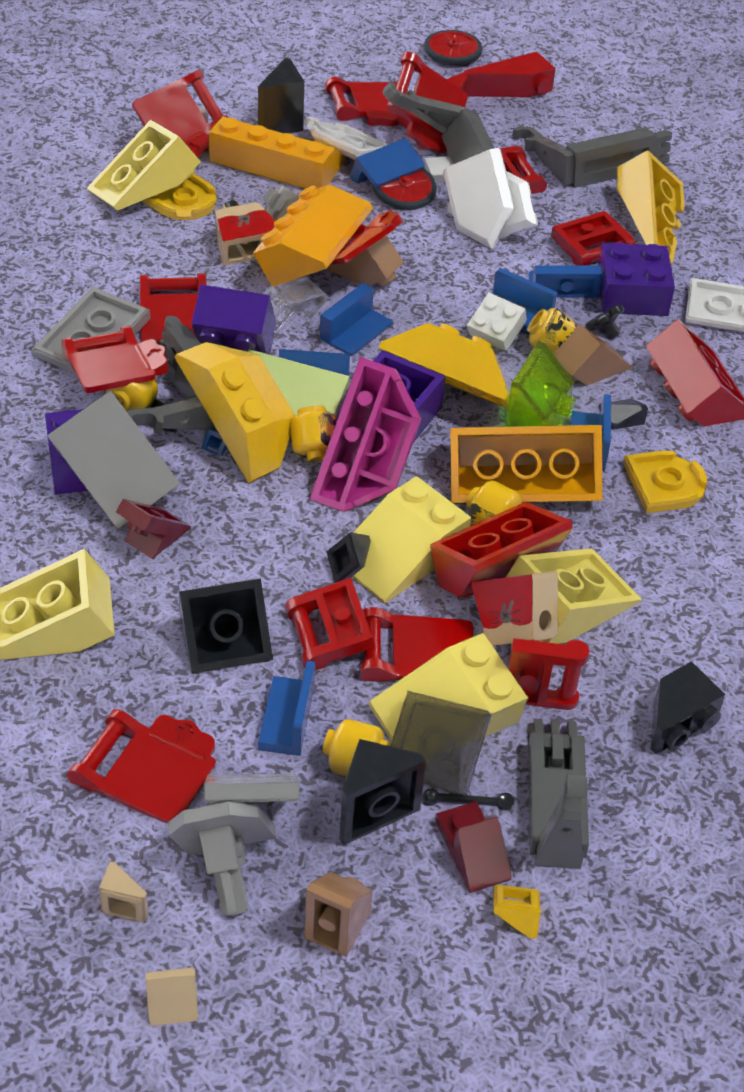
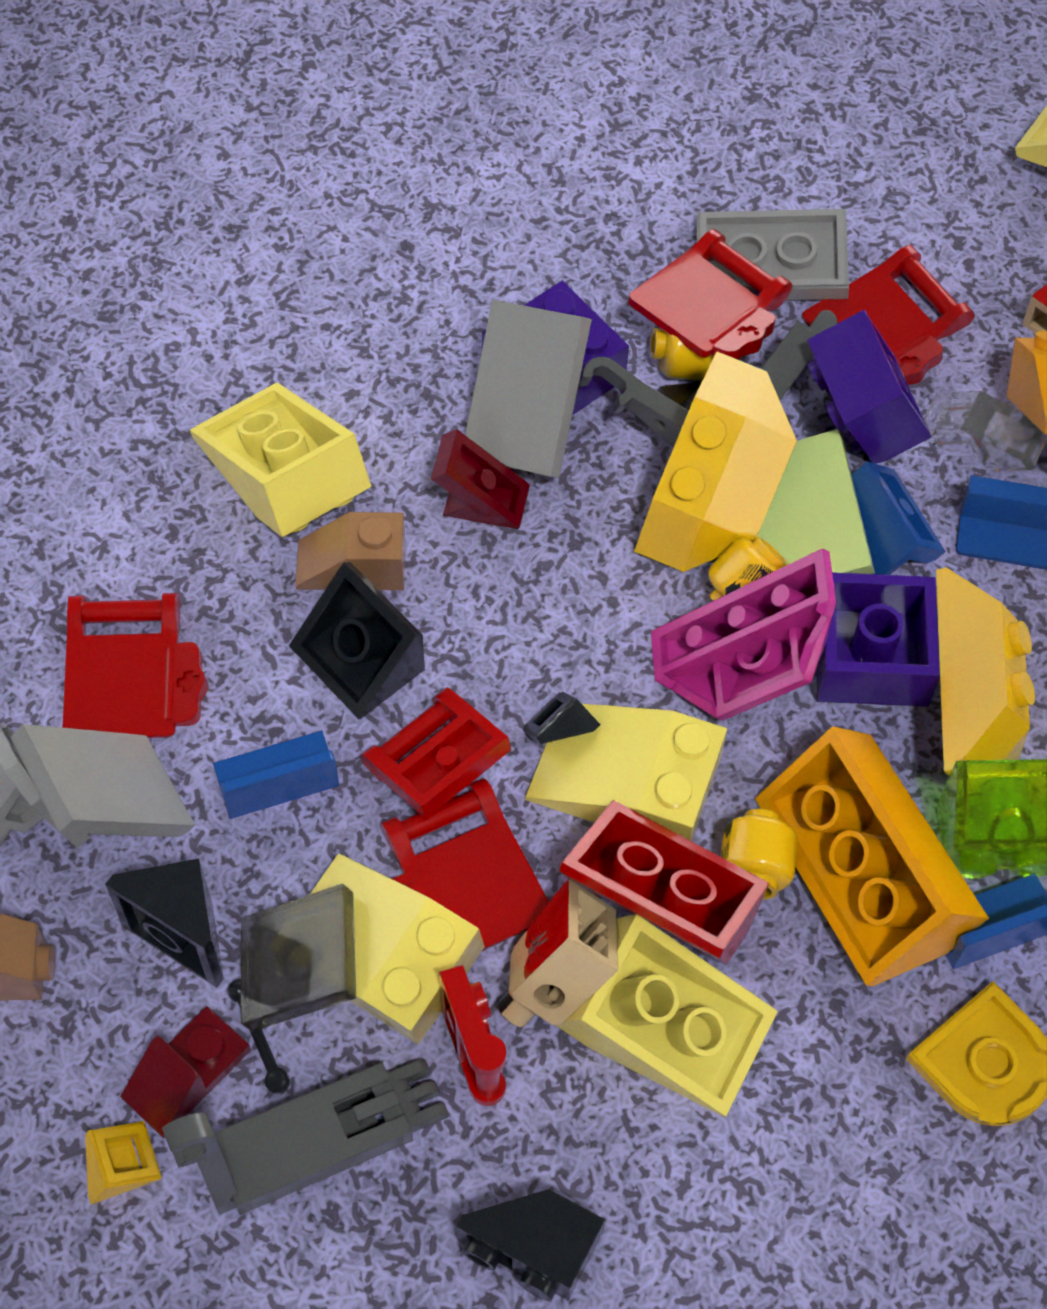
camera: 65 degrees right, 15 degrees up
(154, 604) = (366, 539): none -> medium nougat slope
(342, 743) = (246, 872): yellow head -> none

